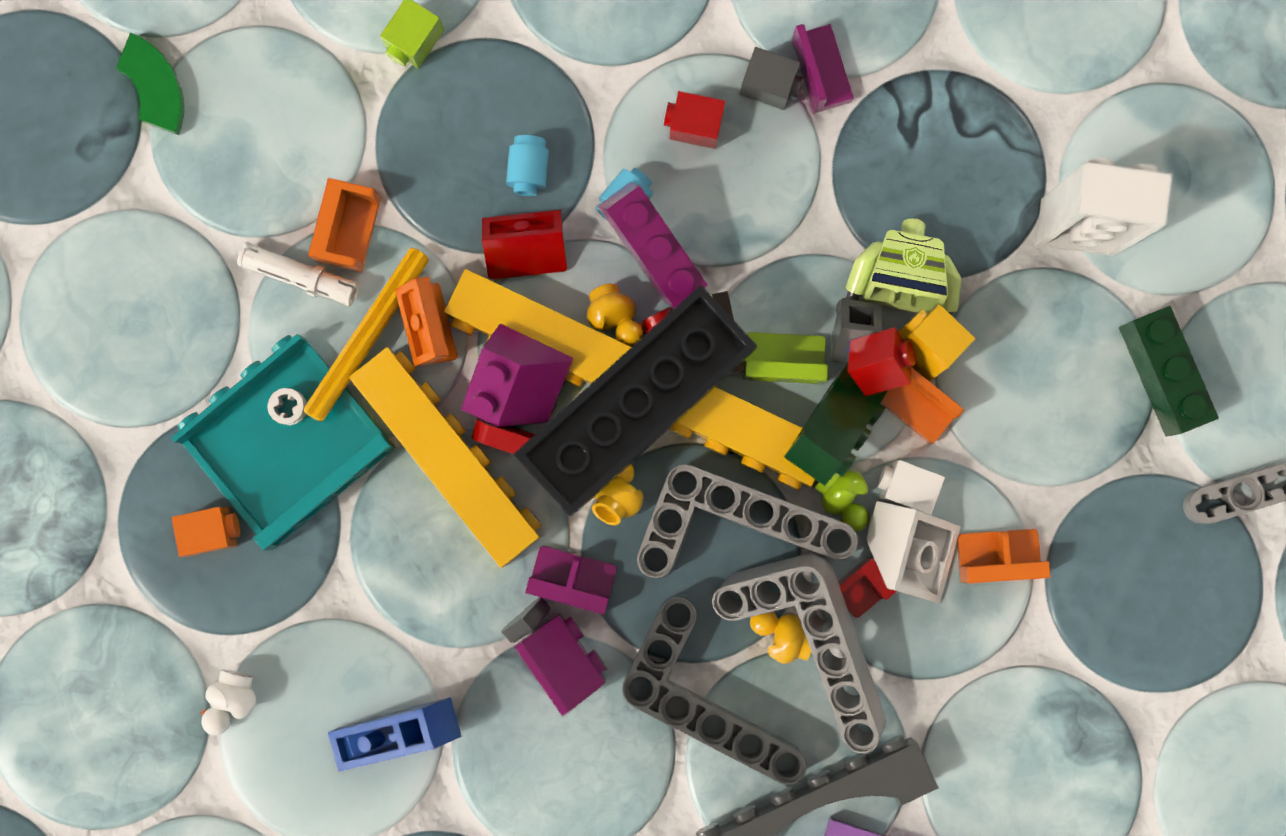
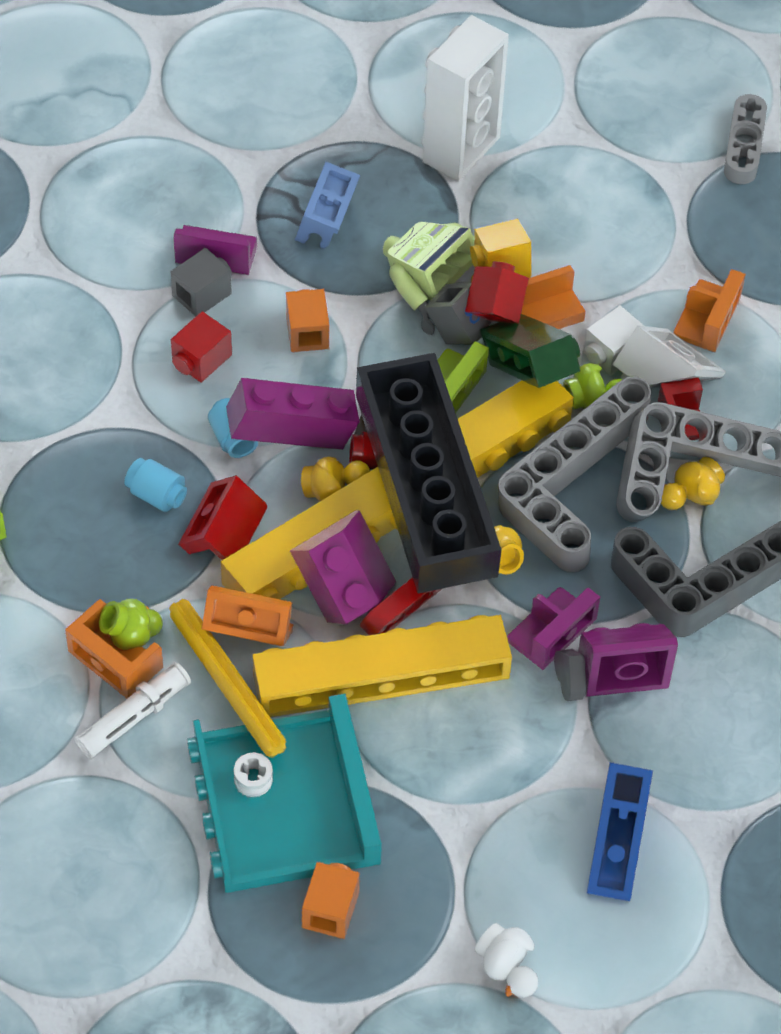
camera: 65 degrees left, 30 degrees down
(371, 224) = (129, 623): none -> lime animal
(780, 196) = (307, 320): none -> orange brick
(925, 143) = (328, 204): none -> medium blue hinge
(1168, 372) = (618, 135): dark green brick -> none

